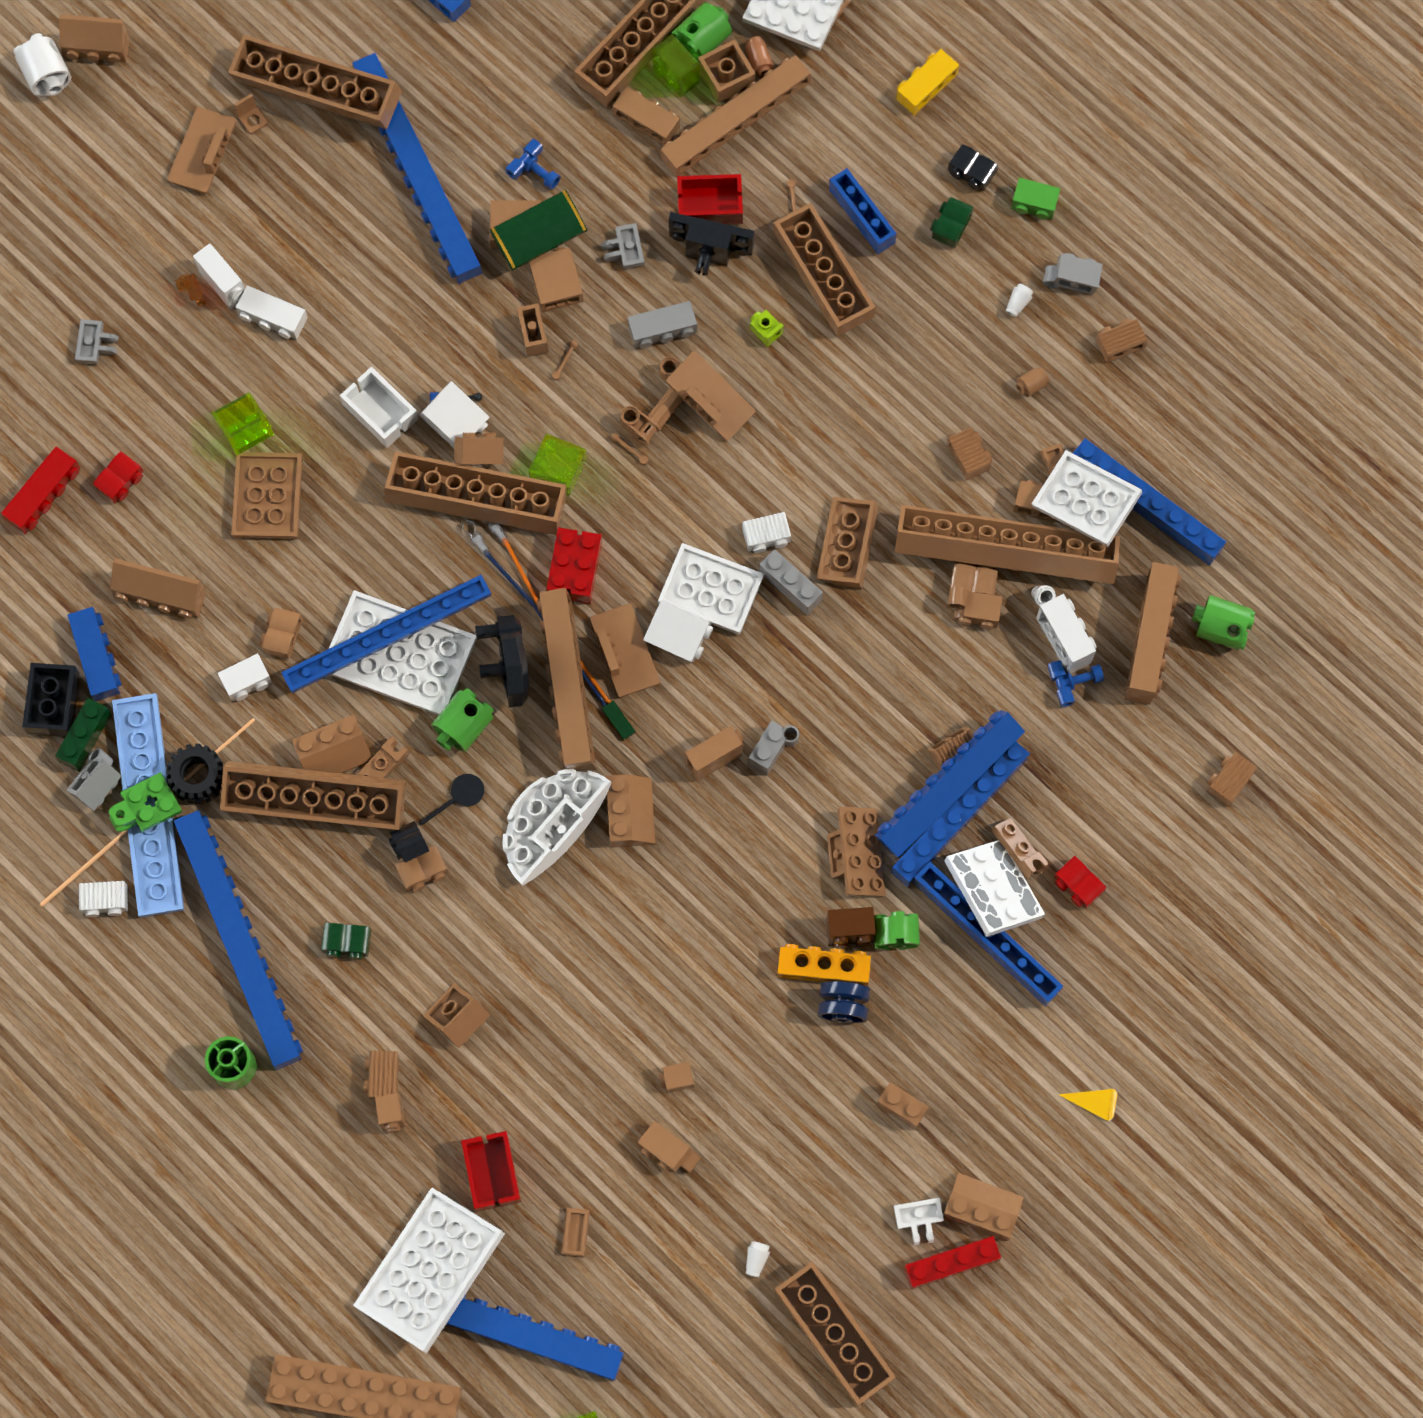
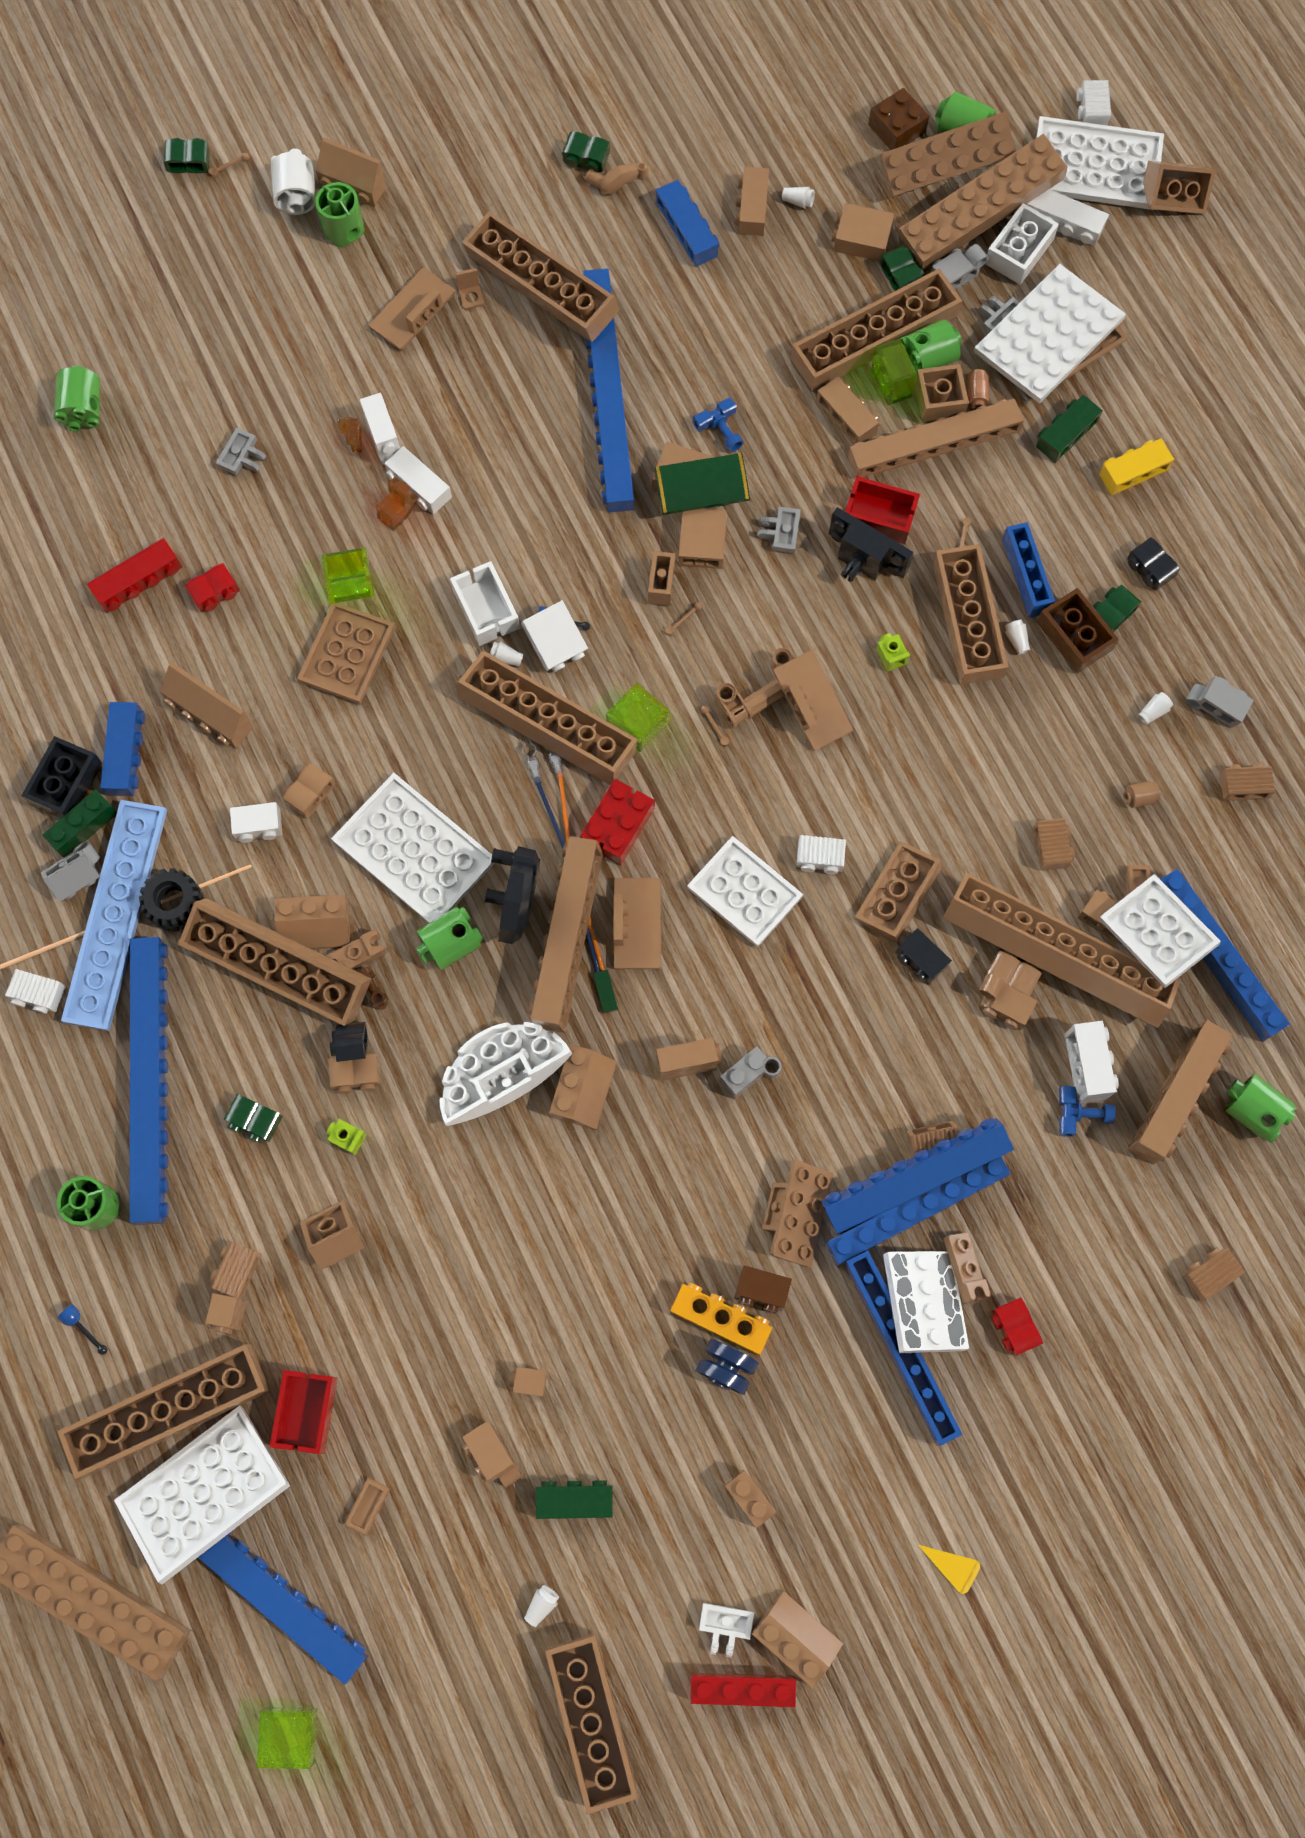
camera: 20 degrees right, 0 degrees up
(100, 82) = (339, 213): none -> bright green cylinder
(134, 808) = (97, 915): bright green plate -> none
(252, 1167) = (71, 1317): none -> hinge
(261, 342) = (397, 505): none -> clear orange brick
(368, 1214) = (163, 1411): none -> medium nougat brick
(386, 634) = (407, 826): blue plate -> none
(415, 447) = (506, 654): none -> white cone
(418, 796) = (378, 999): none -> reddish brown bar
(440, 933) = (351, 1142): none -> lime brick
(465, 790) = (428, 1009): black piece -> none
(478, 449) = (565, 676): medium nougat brick -> none
(662, 325) = (791, 615): light grey brick -> none
(678, 631) = (696, 922): white brick -> none
(753, 1161) = (574, 1500): none -> dark green brick
(790, 582) = (827, 912): light grey brick -> none
(853, 65) = (1068, 428): none -> dark green brick
(873, 274) = (1018, 636): none -> white cone
(888, 592) = (922, 957): none -> black brick
(896, 931) = (808, 1310): bright green brick -> none
(925, 252) = (1077, 630): none -> reddish brown brick
(1035, 199) = (1206, 614): bright green brick -> none
(1043, 594) = (1080, 1013): white cone -> none

